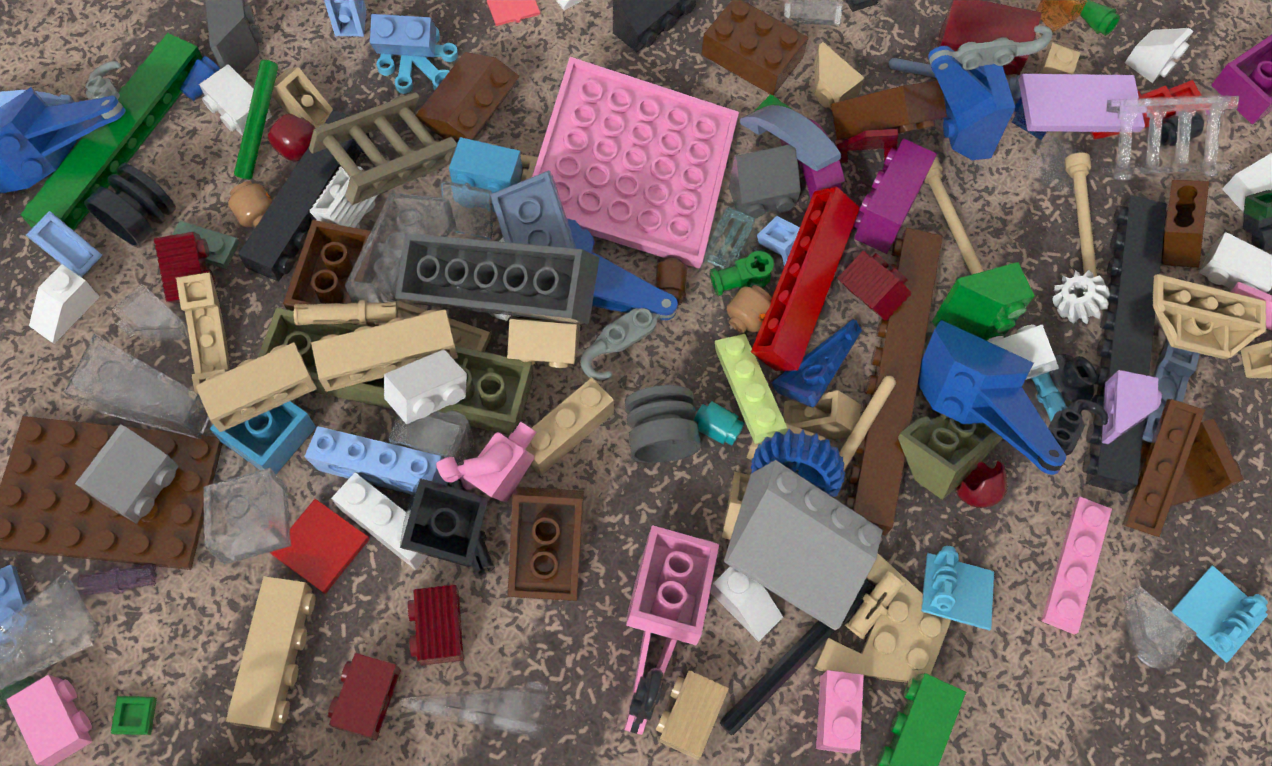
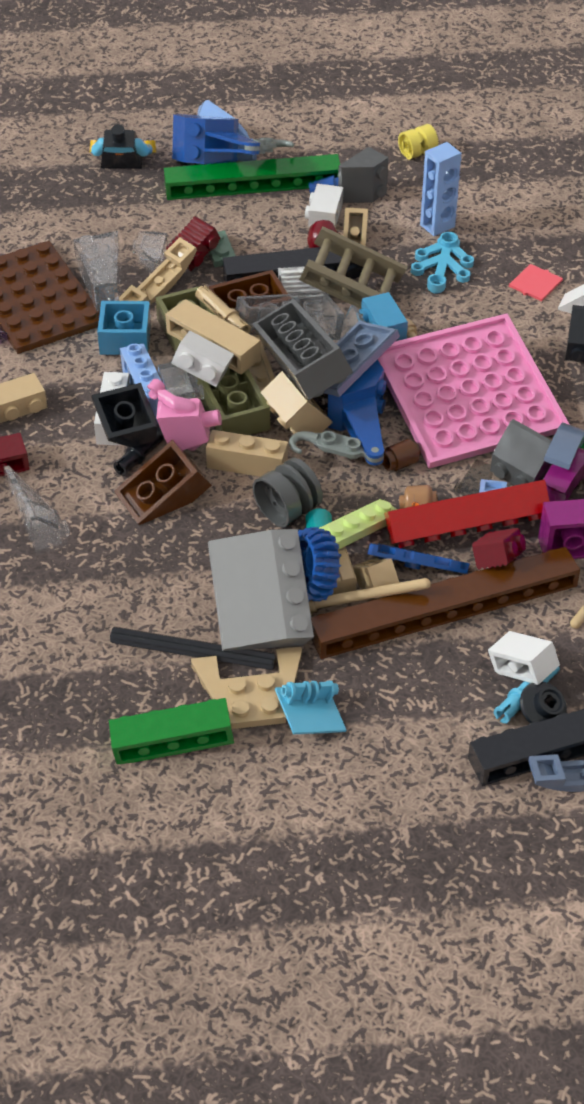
camera: 60 degrees right, 20 degrees down
(60, 303) = (128, 215): white slope -> none
(64, 244) = (162, 194): light blue tile -> none
(128, 474) = (45, 283): light grey slope -> none
(133, 201) = (212, 201): black wheel -> none
(246, 516) = (64, 348): clear brick -> none
(249, 203) = (263, 244): medium nougat head -> none
(255, 387) = (138, 298): tan brick -> none
(256, 119) = (323, 213): green axle -> none
(321, 546) = (73, 394): red tile -> none
(403, 35) = (443, 242): medium blue brick -> none
(436, 625) = (68, 465): dark red brick -> none
(467, 97) = (433, 297): reddish brown slope -> none
(670, 602) = (163, 549): bright pink slope -> none
(692, 715) = (106, 609): tan brick -> none
(718, 260) = (466, 470): clear light blue tile -> none
(744, 273) = (445, 485): green connector -> none
(746, 602) = (202, 603): white slope -> none
(840, 712) = (167, 680): bright pink brick -> none
(862, 621) = (259, 665): tan pin -> none
(945, 451) = (414, 654): olive wedge -> none
(984, 384) = (469, 644): blue slope -> none
(984, 486) = (401, 685): dark red hair -> none
(987, 301) = (540, 602): green slope -> none
(1076, 565) = (395, 776): bright pink plate -> none
(1128, 402) = (537, 726): lavender slope -> none
(1154, 629) = (378, 839): clear slope -> none
(1163, 467) = (512, 777): reddish brown plate -> none
(1208, 467) = (538, 810): reddish brown bracket -> none
(1221, 613) = (433, 883): medium azure hinge -> none

